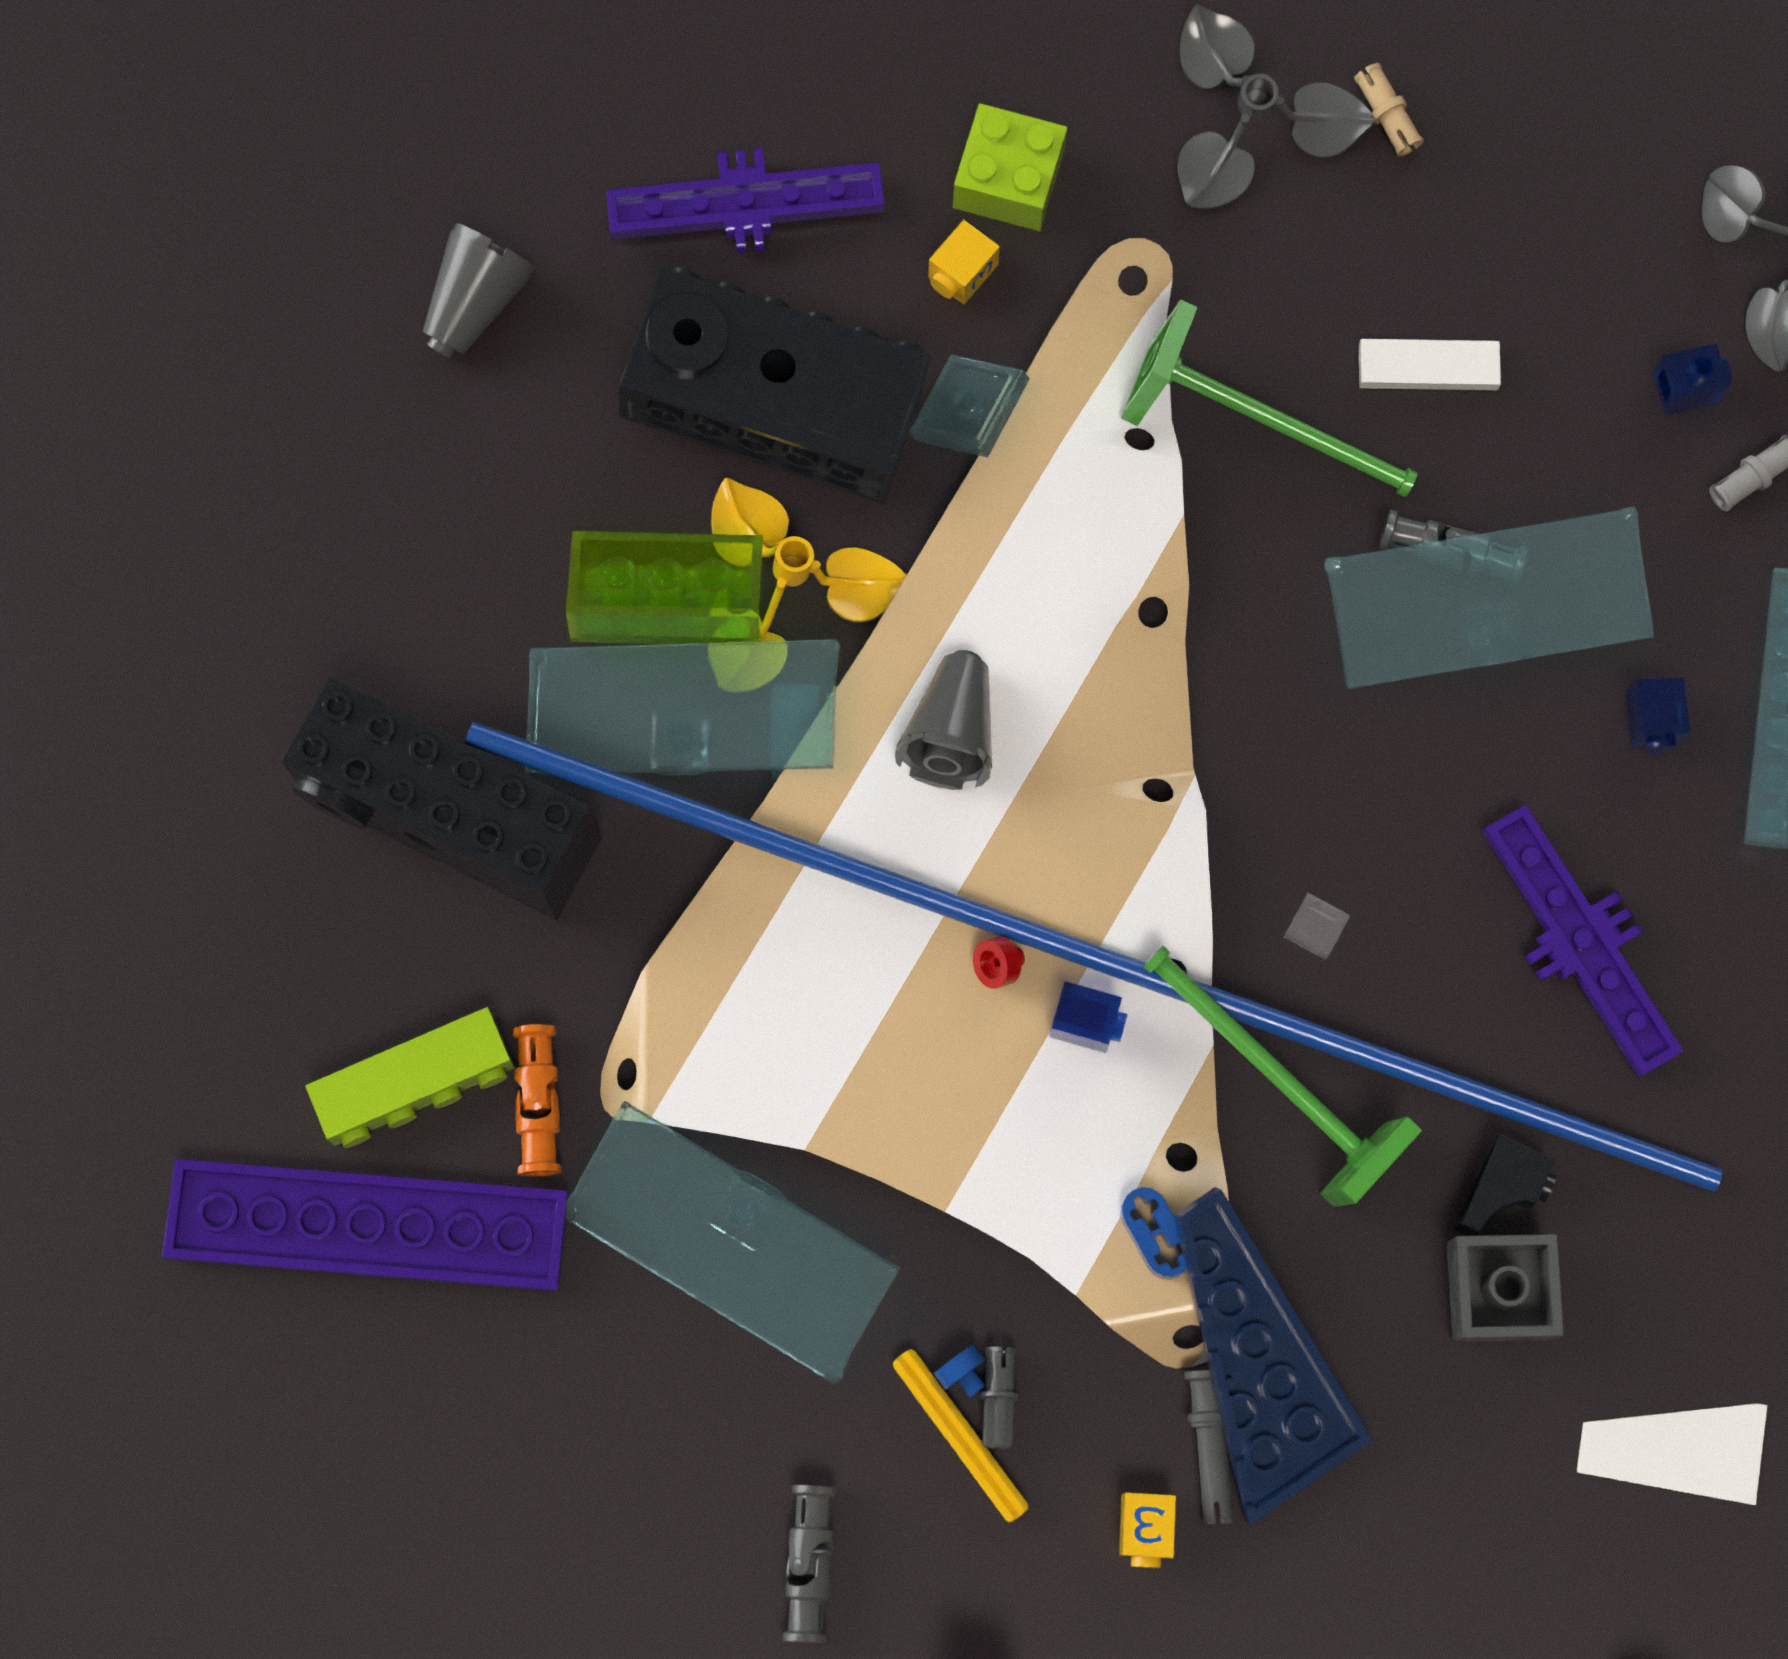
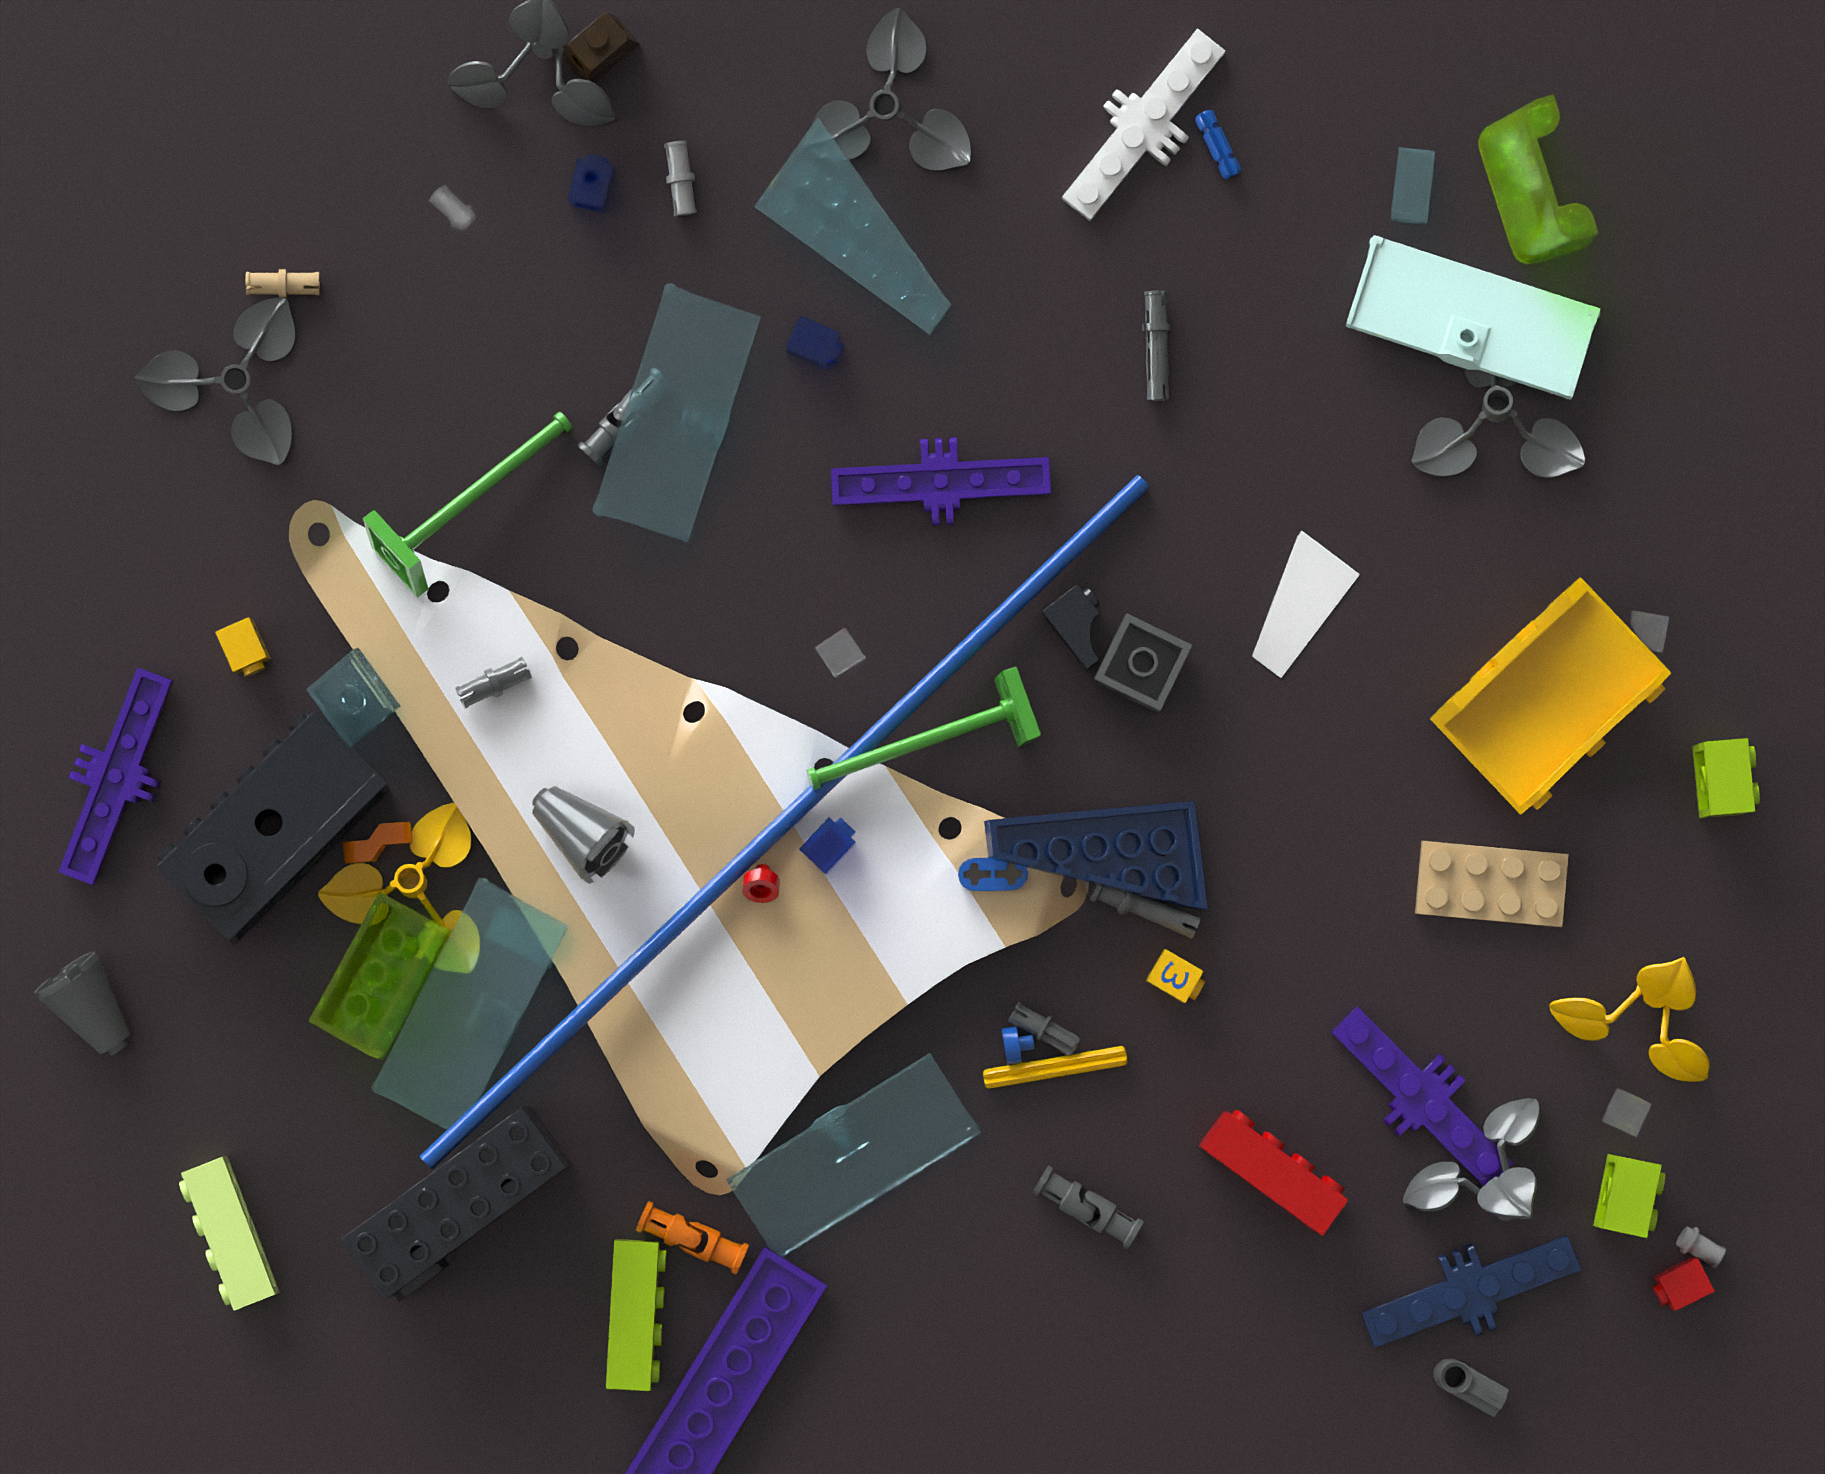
camera: 60 degrees left, 10 degrees up
(286, 571) = (229, 1233): none -> yellowish green brick
(818, 514) = (384, 835): none -> orange piece
(1009, 167) = (189, 576): lime brick -> none
(1070, 542) = (493, 682): none -> dark grey pin
(1429, 364) = (485, 358): white tile -> none
(1574, 255) = (458, 213): none -> clear pin

